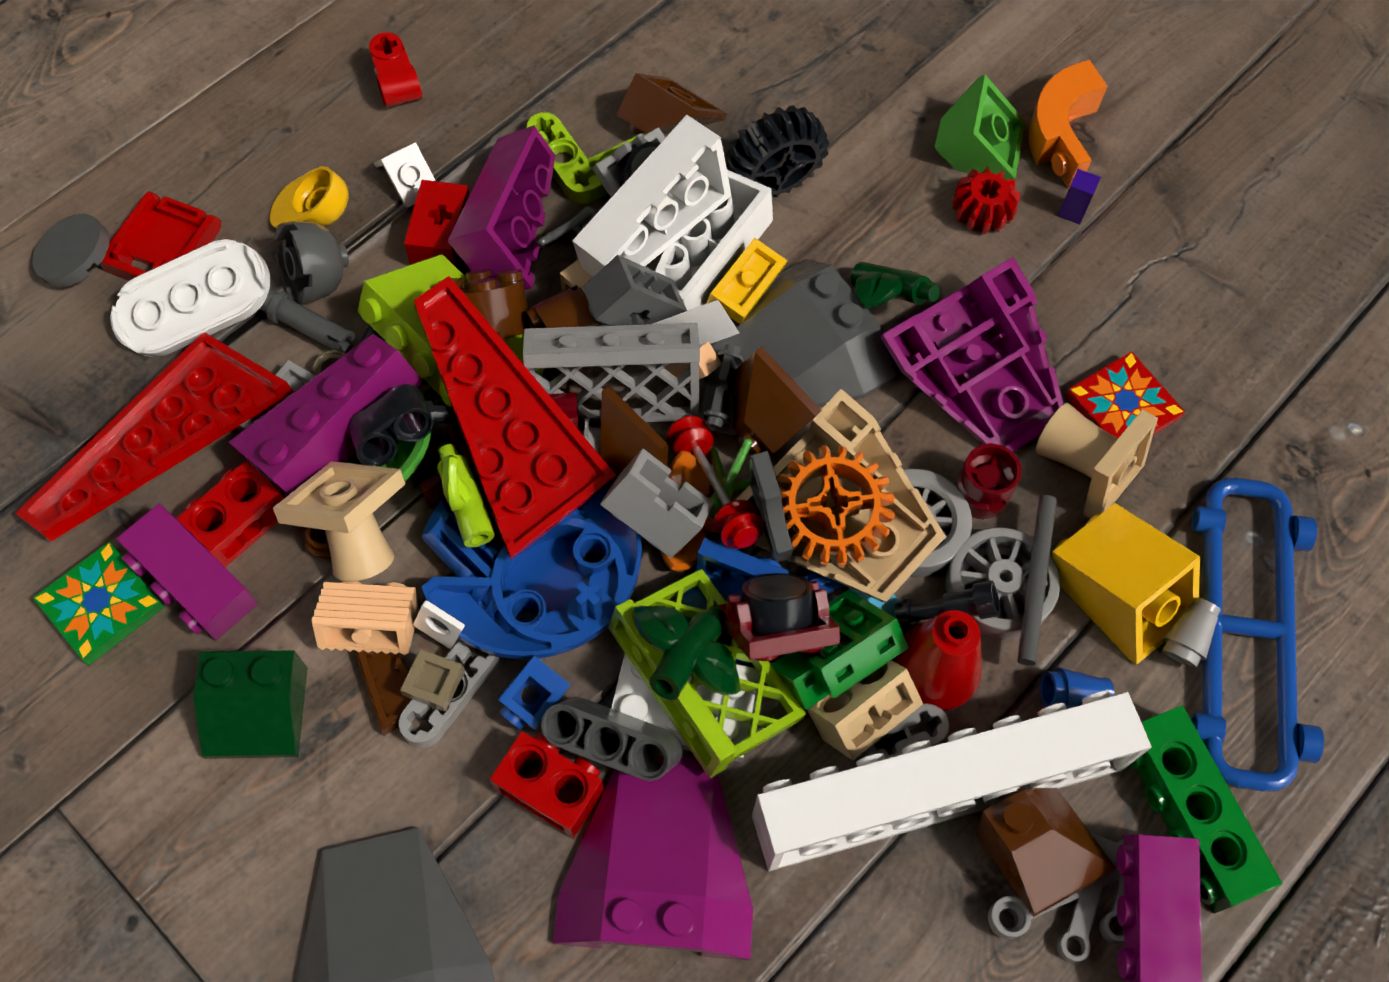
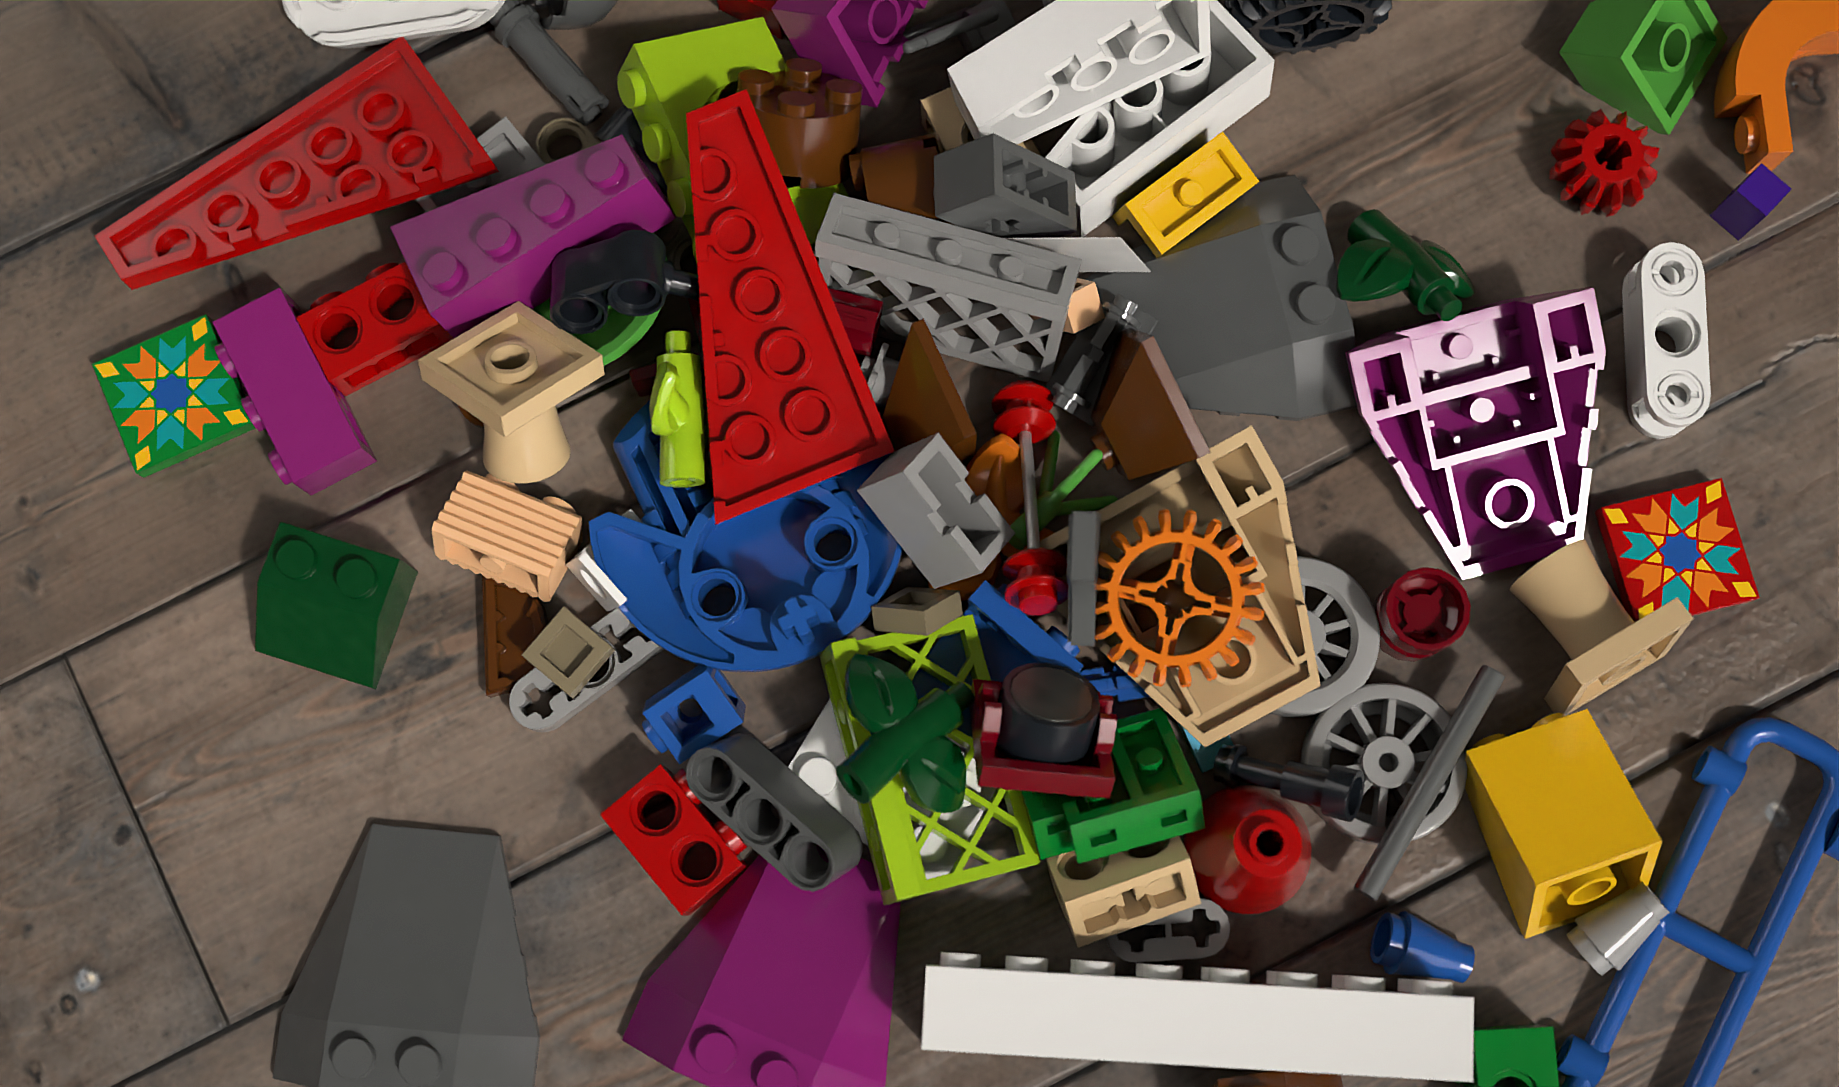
camera: 25 degrees right, 15 degrees up
(664, 576) = (917, 610): none -> dark tan tile
(1065, 285) = (1668, 296): none -> white piece

